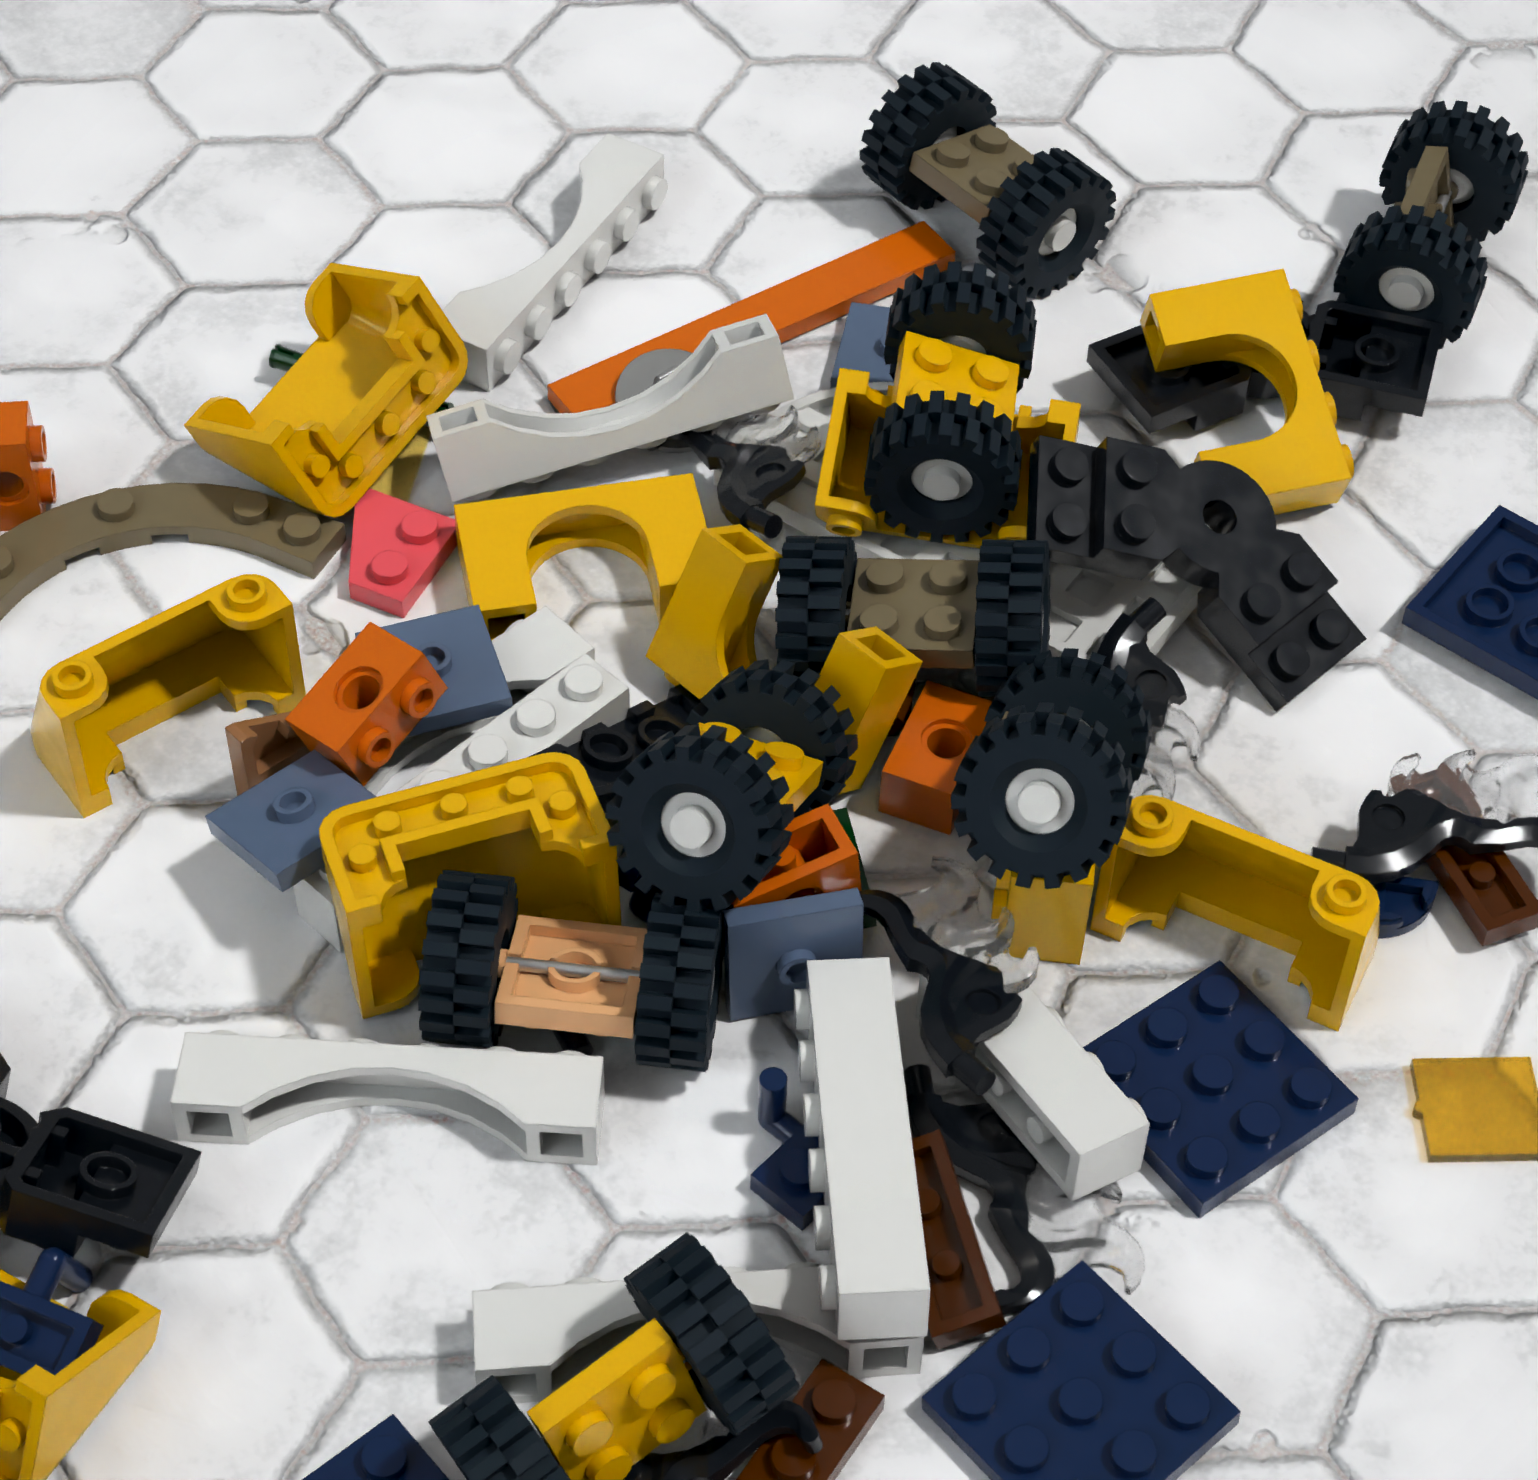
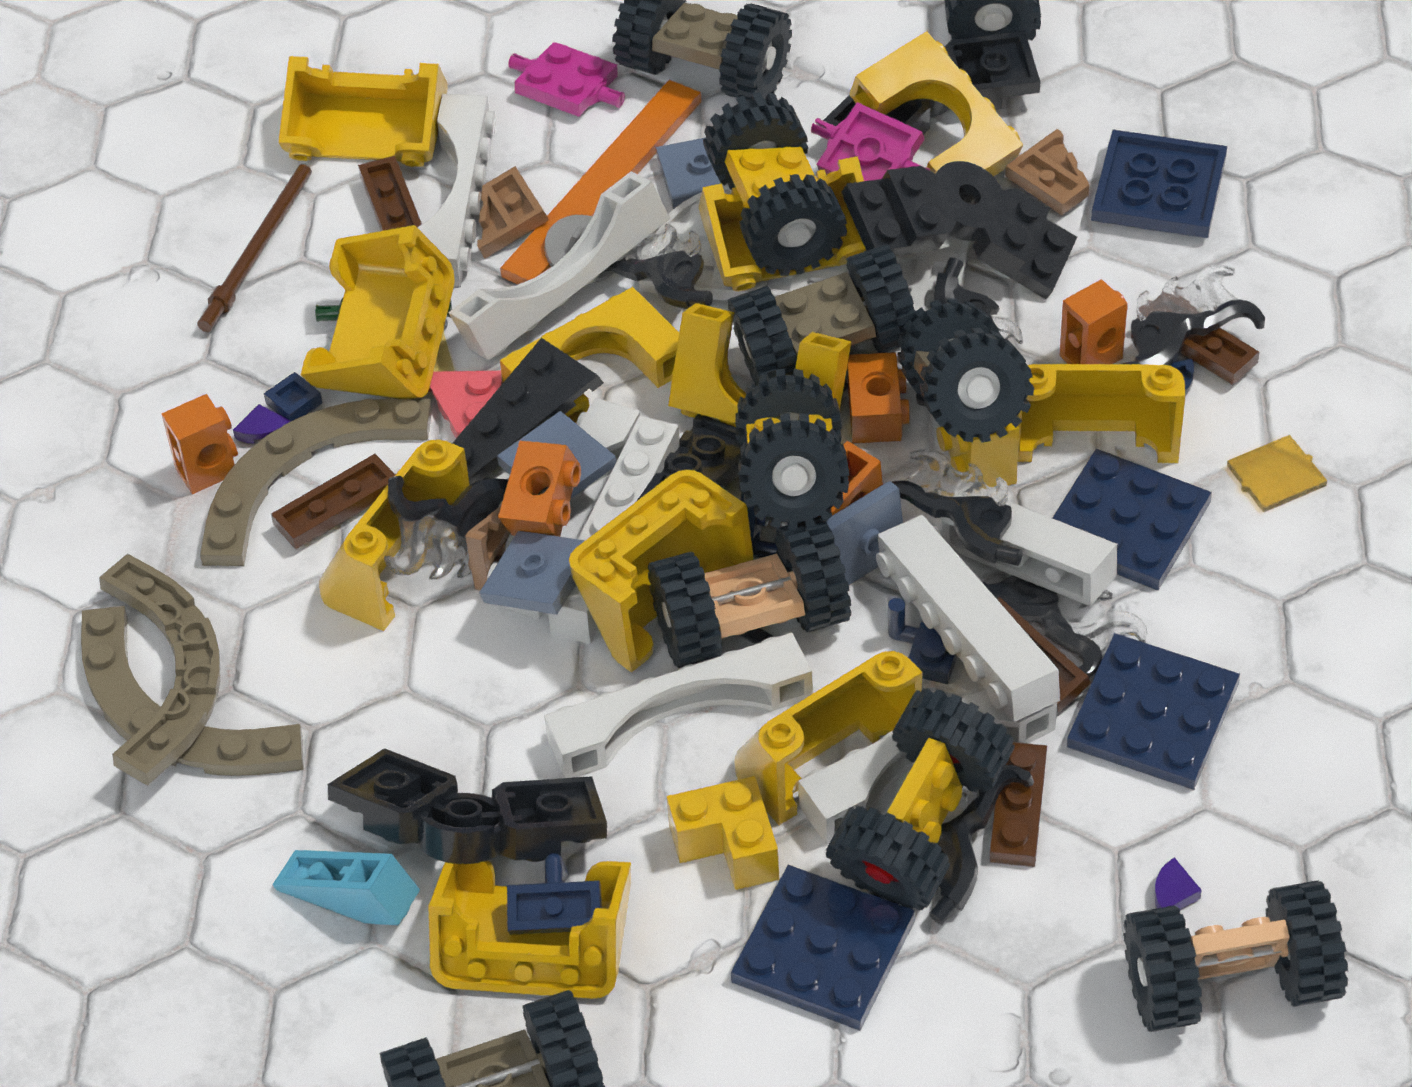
camera: 20 degrees left, 0 degrees up
(86, 617) = (332, 501): none -> reddish brown plate
(108, 471) = (258, 424): none -> dark purple tile
(171, 455) = (293, 397): none -> dark blue plate
(179, 292) = (224, 295): none -> reddish brown bar
(199, 695) = (437, 530): none -> piece
(347, 1313) = (726, 821): none -> yellow brick
(460, 567) = (530, 395): none -> black wing
(465, 242) = (388, 194): none -> reddish brown plate
(491, 120) = (361, 113): none -> yellow windscreen
(554, 1213) = (862, 699): none -> yellow windscreen
(605, 315) = (507, 212): none -> medium nougat wing
(792, 174) = (566, 79): none -> dark pink plate
(1129, 397) = (871, 136): none -> dark pink plate
(1307, 778) = (1093, 325): none -> orange brick
(1376, 535) = (1050, 174): none -> medium nougat wing

